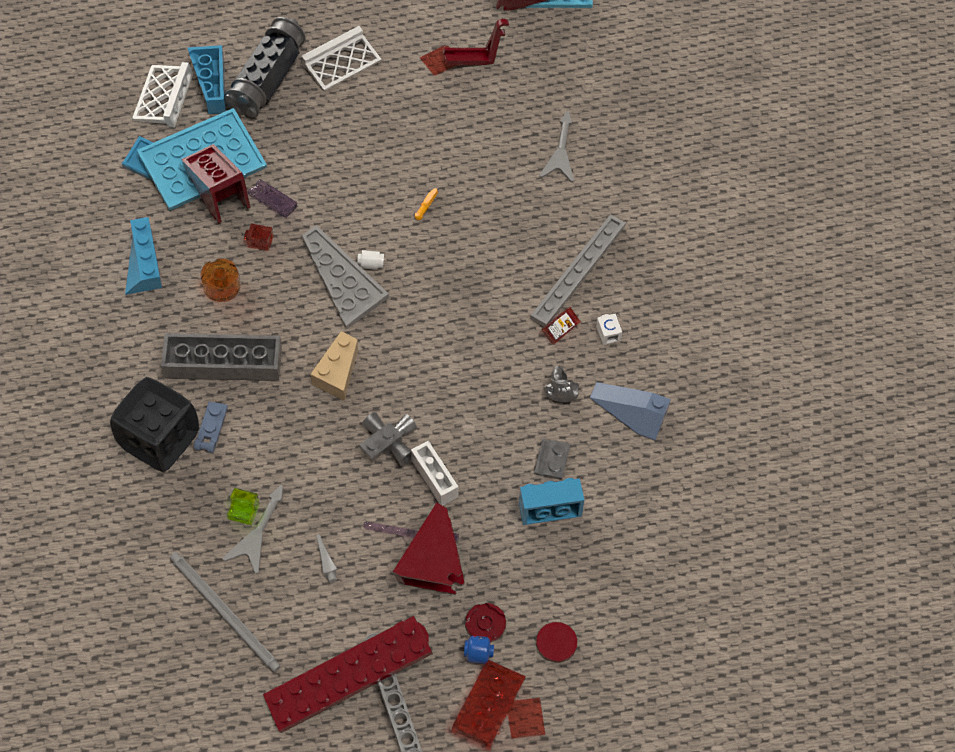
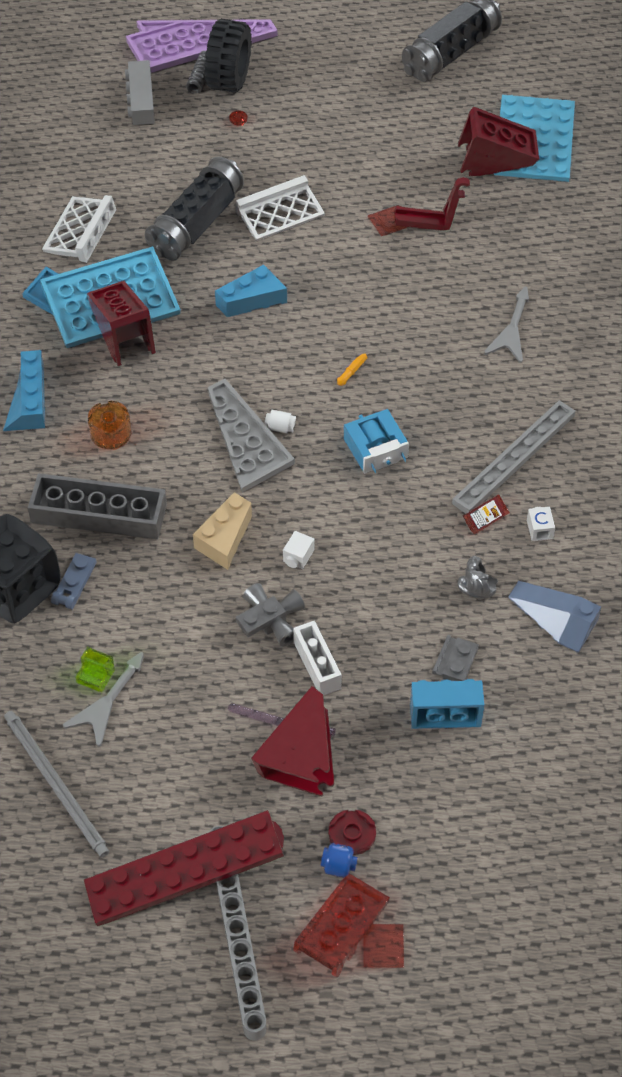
camera: 10 degrees right, 5 degrees down
(210, 71) = (134, 208): dark azure wedge -> none
(259, 237) = (160, 384): clear red brick -> none
(273, 198) = (182, 346): clear purple plate -> none
(327, 141) = (250, 292): none -> dark azure wedge
(329, 567) = (181, 747): light grey piece -> none
(403, 377) = (298, 550): none -> white brick
(457, 269) = (376, 441): none -> dark azure piece
(556, 642) = (431, 864): dark red tile -> none

